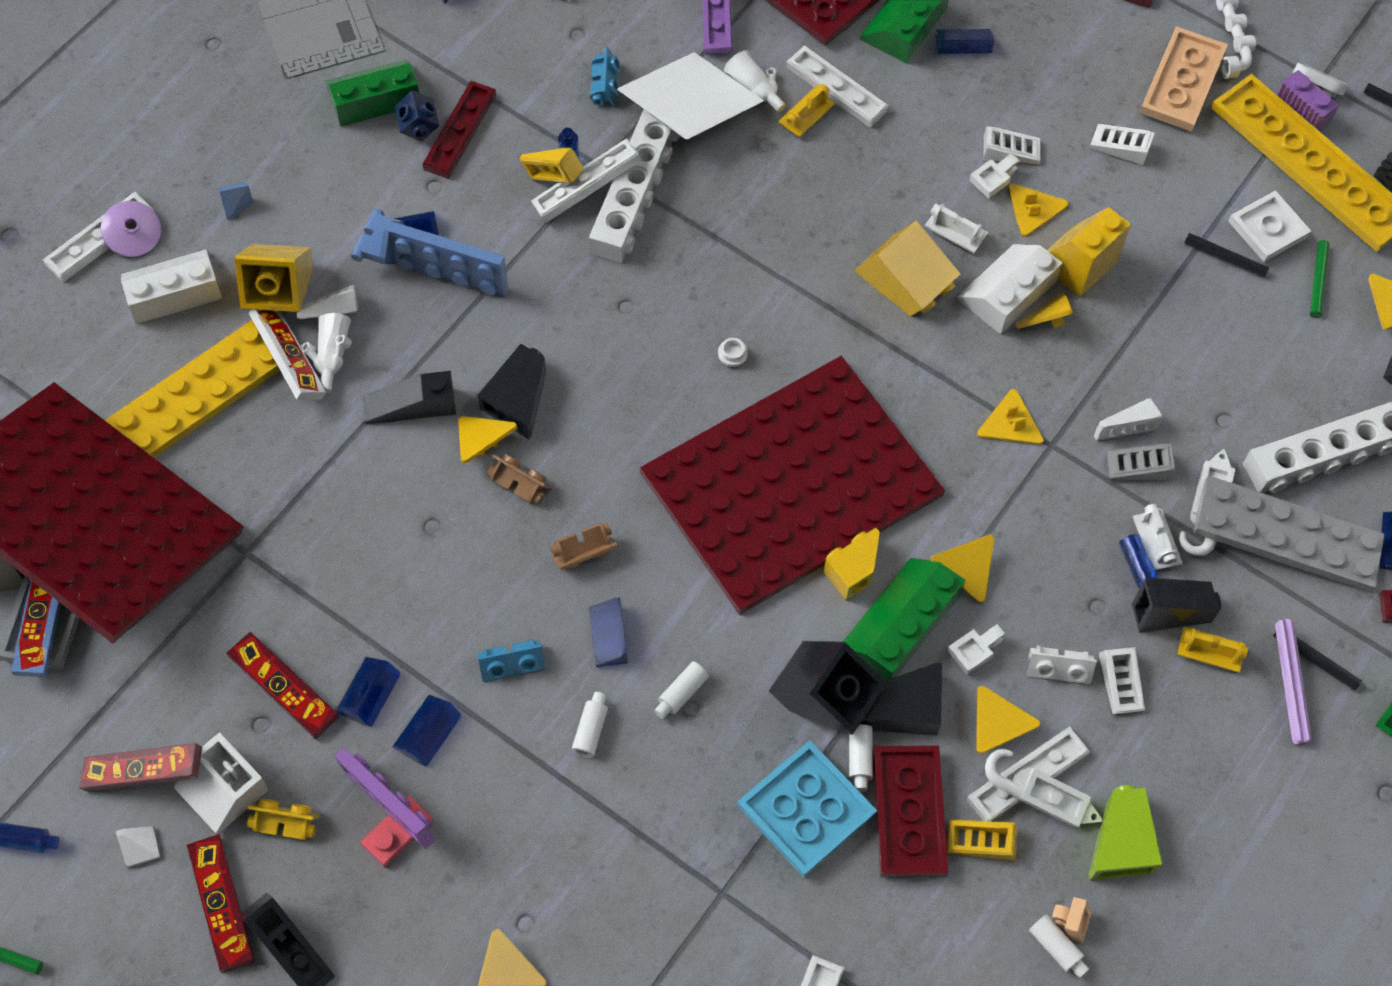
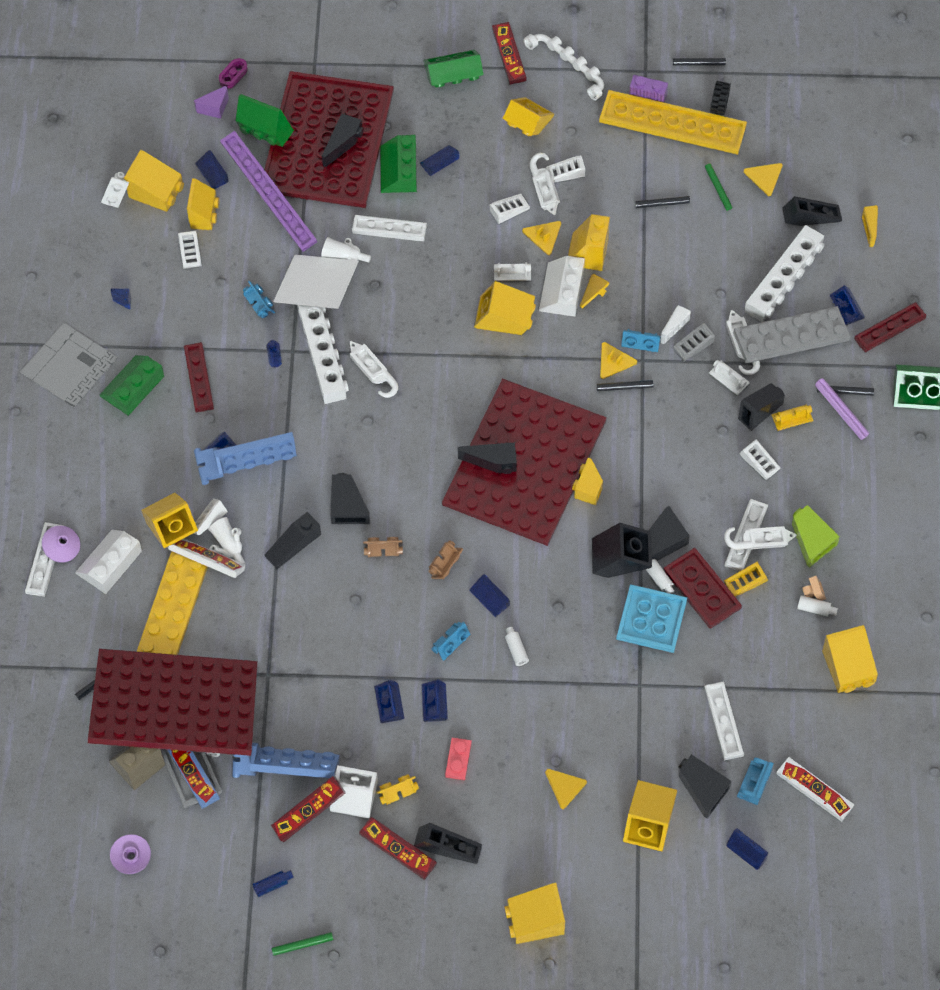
camera: 30 degrees left, 0 degrees up
(138, 845) = (333, 849): white slope -> none
(169, 686) = (285, 762): none -> medium blue hinge
(235, 198) = (106, 491): medium blue slope -> none
(282, 685) = (343, 726): tile -> none
(393, 804) = (443, 744): medium lavender plate -> none
(417, 115) = (172, 383): dark blue brick -> none
(480, 434) = (346, 536): yellow piece -> none
(555, 165) = (273, 366): yellow slope -> none
(592, 177) = (296, 364): white tile -> none
(681, 690) = (548, 600): white cylinder -> none
(682, 243) = (372, 367): none -> white plate
(732, 352) = (444, 411): white plate -> none
(749, 450) = (494, 457): none -> black slope
(807, 110) = (384, 252): yellow hinge -> none
(905, 615) = (631, 491): green slope -> none
(972, 563) = (646, 448): yellow piece -> none
(974, 650) = (678, 489): white plate -> none
(993, 177) = (512, 231): white plate -> none
(999, 721) = (715, 517): yellow piece -> none
(1002, 463) = (625, 385): none -> black bar
(1065, 417) = (640, 341): none -> dark azure hinge
(1069, 667) = (730, 469): white hinge -> none
(1078, 144) = (544, 185): none -> white plate
(1117, 47) = (527, 116): none -> yellow slope
(1137, 558) = (727, 394): clear blue cylinder -> none
(1183, 78) = (574, 113): light nougat plate -> none
(1269, 226) = (674, 172): white plate -> none
(1328, 83) = (653, 71): white plate -> none

